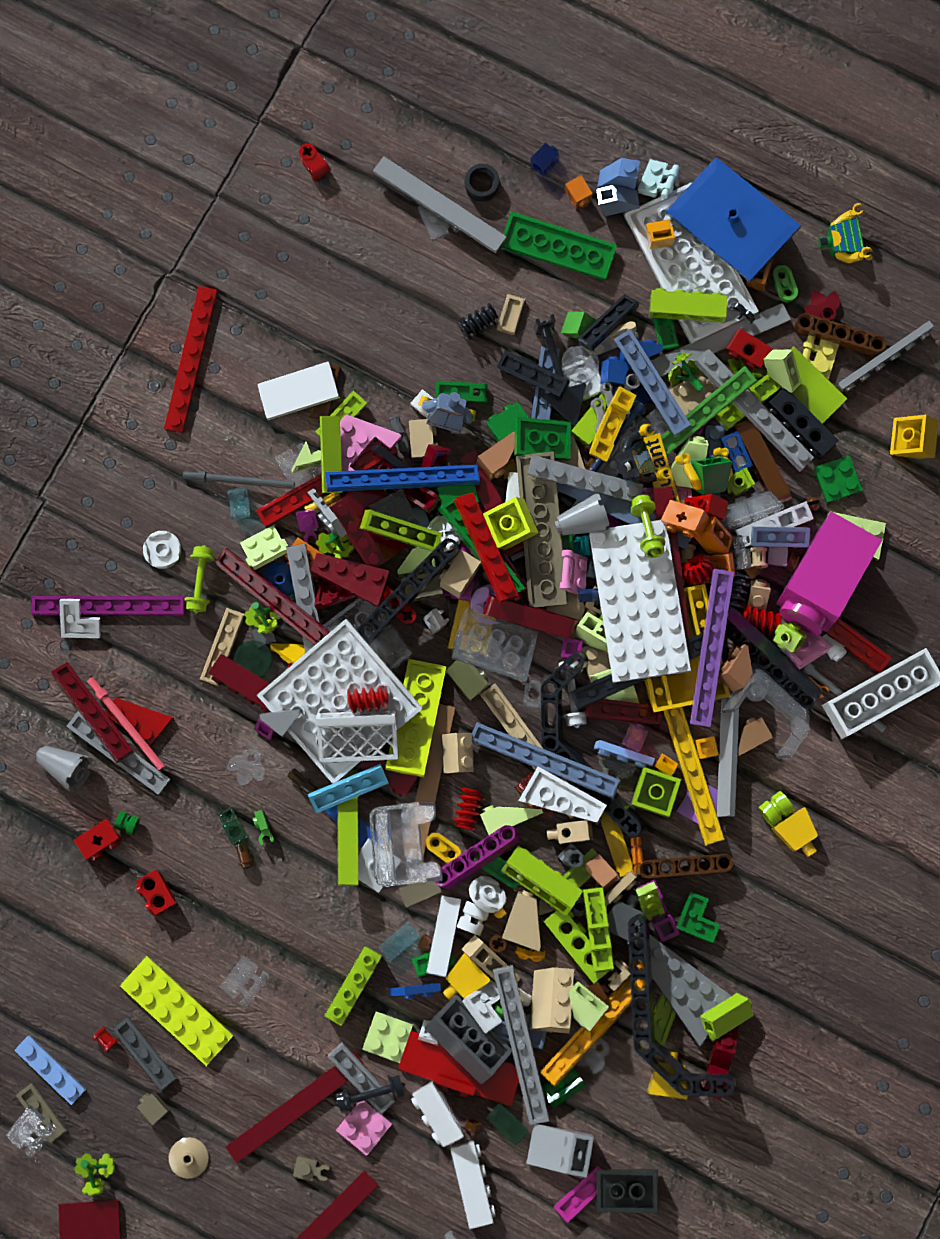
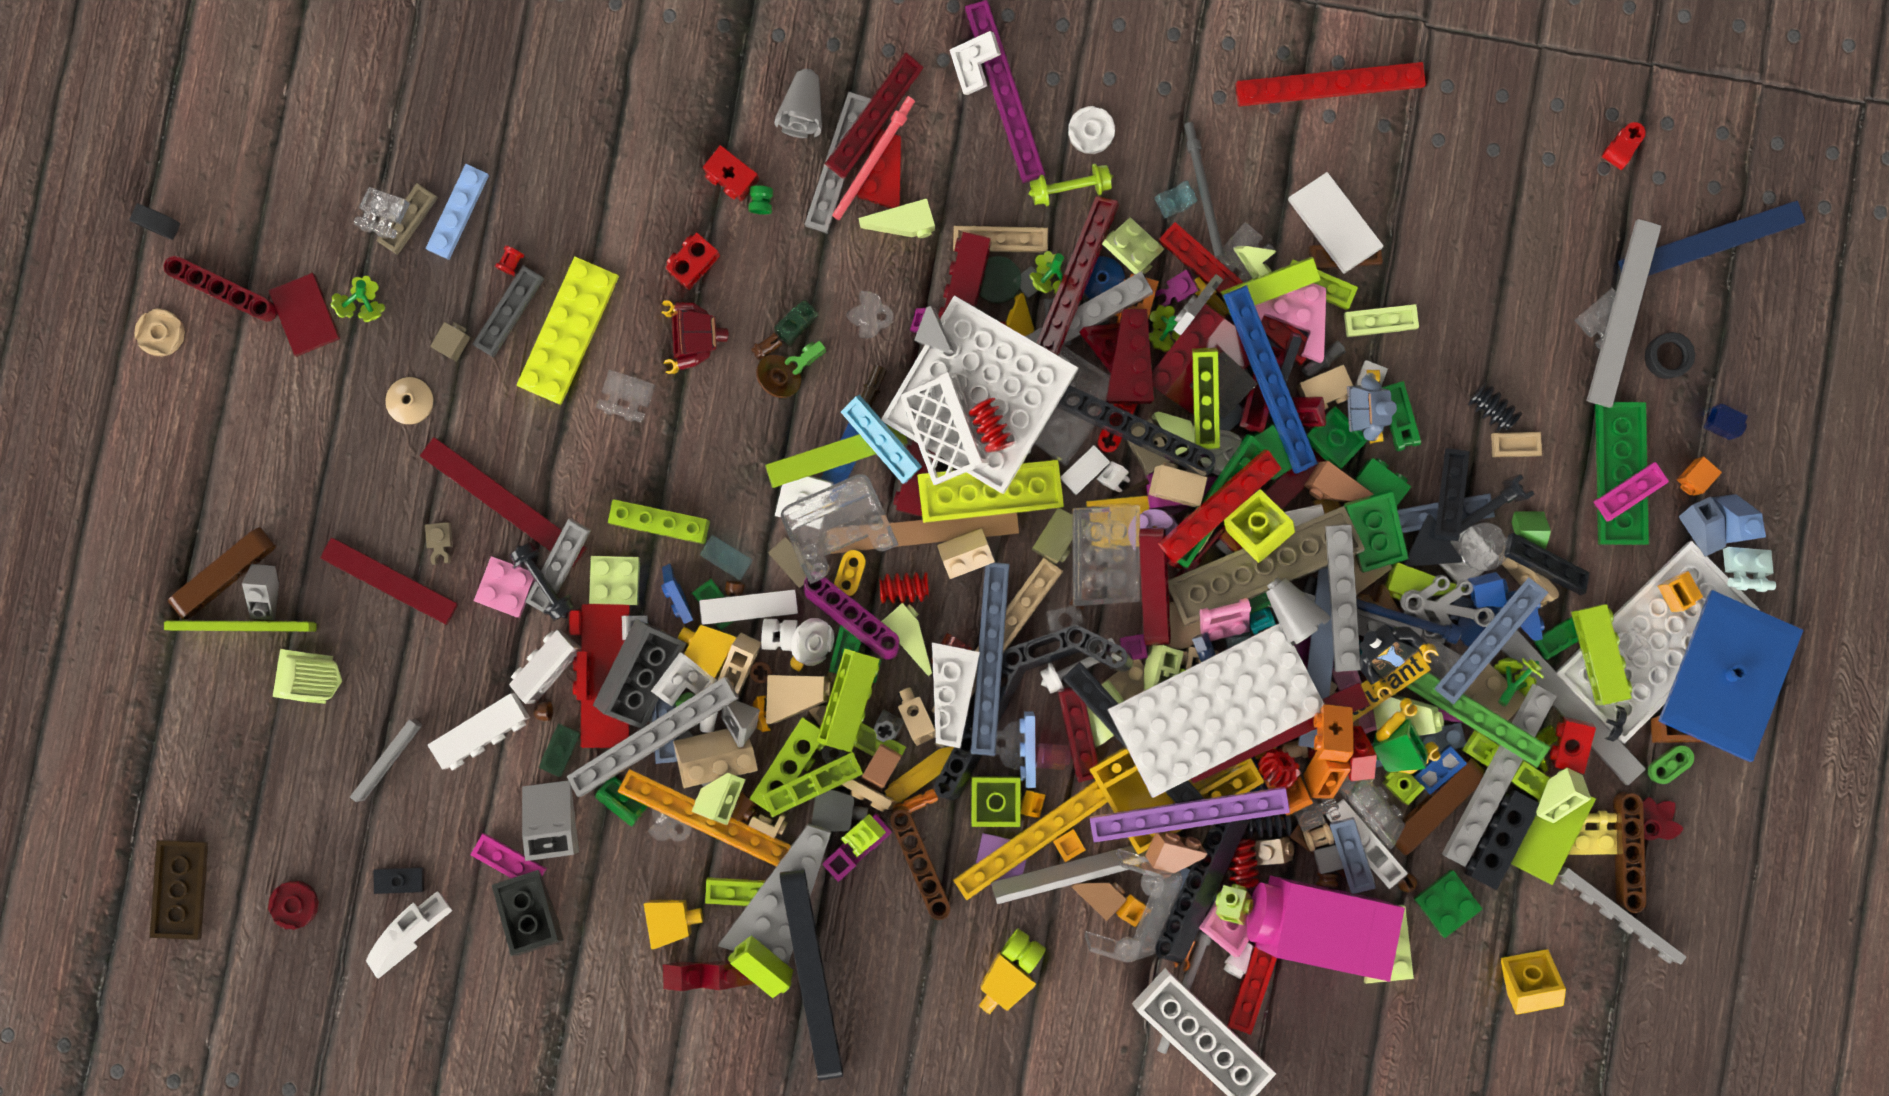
camera: 70 degrees right, 5 degrees up
(183, 713) = (906, 220): none -> yellowish green slope
(214, 910) = (693, 335): none -> dark red torso
(271, 854) = (774, 367): none -> reddish brown dish
(384, 382) = (1381, 320): none -> yellowish green plate
(407, 113) = (1725, 237): none -> dark blue tile
(411, 1078) = (575, 623): none -> red tile
(423, 641) = (1084, 470): none -> white tile
(463, 446) = (1334, 440): none -> green plate
(530, 971) = (740, 721): none -> light grey slope
(574, 244) = (1631, 491): none -> dark pink plate
(611, 424) = (1422, 607): yellow slope -> none
(648, 1015) = (710, 881): black beam -> none
(653, 545) = (1288, 704): lime piece -> none
(692, 921) = (860, 891): green plate -> none
(744, 978) = (811, 974): none -> black beam
(771, 716) = (1131, 910): none -> light orange plate
(845, 238) = (1756, 821): torso -> none

